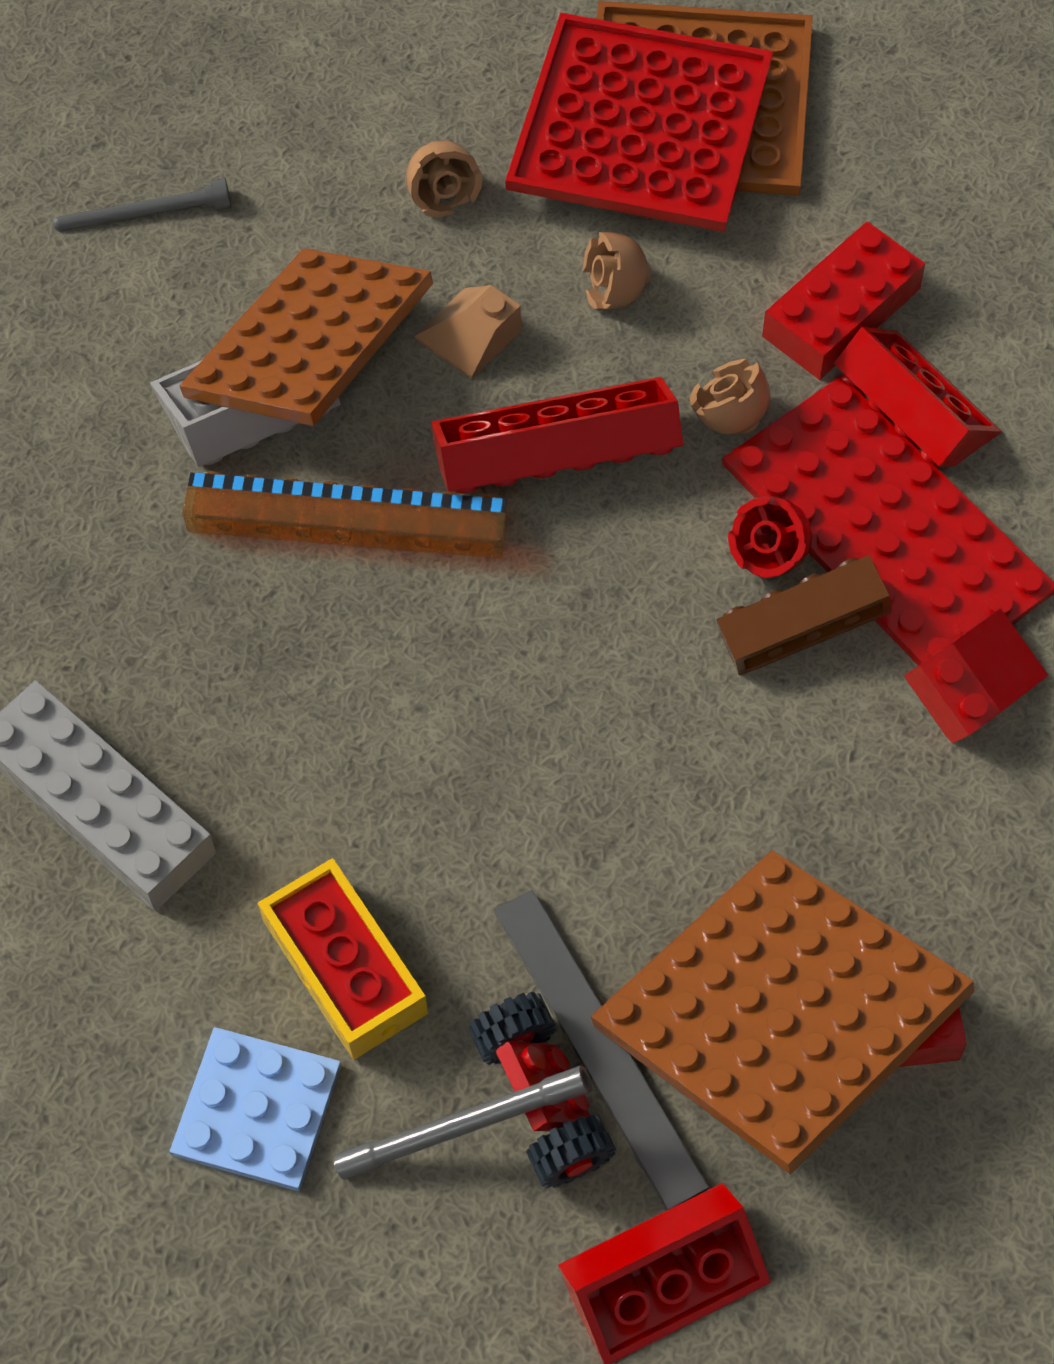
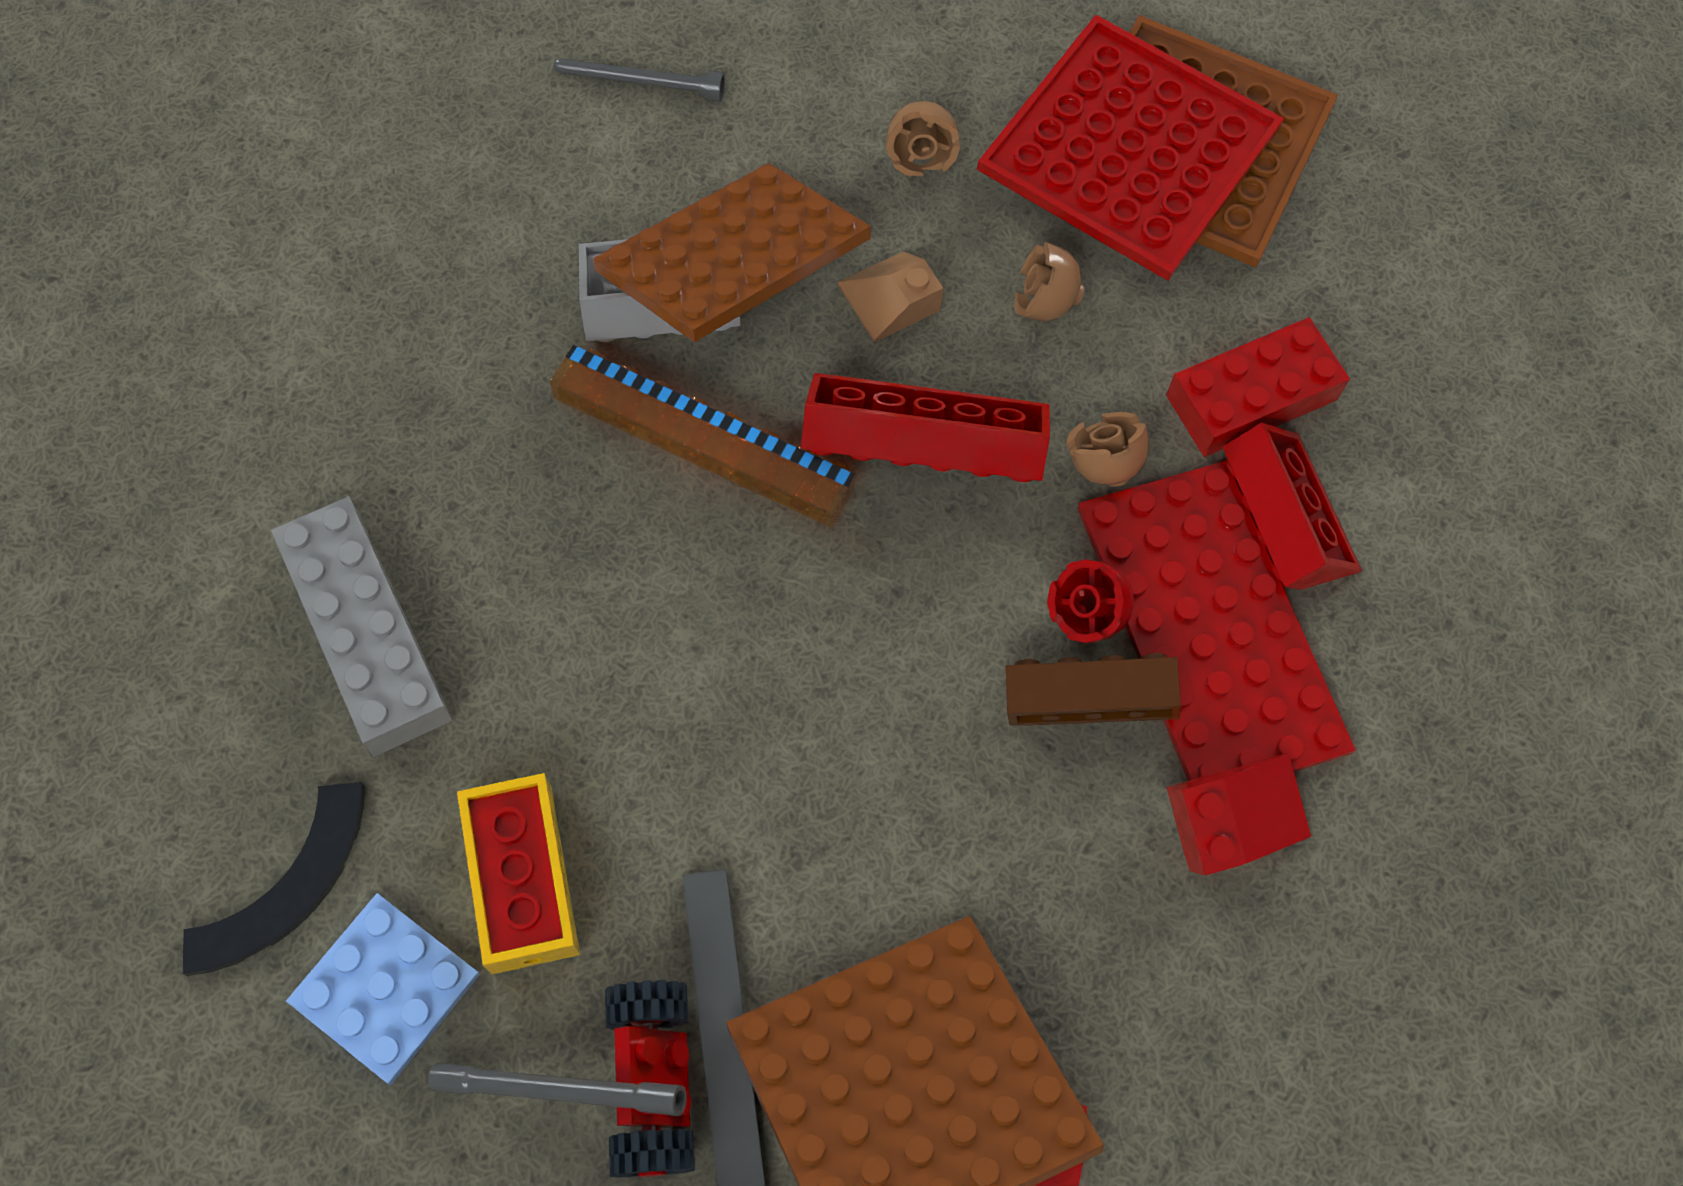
camera: 15 degrees right, 5 degrees up
(133, 1062) = (292, 897): none -> black tile

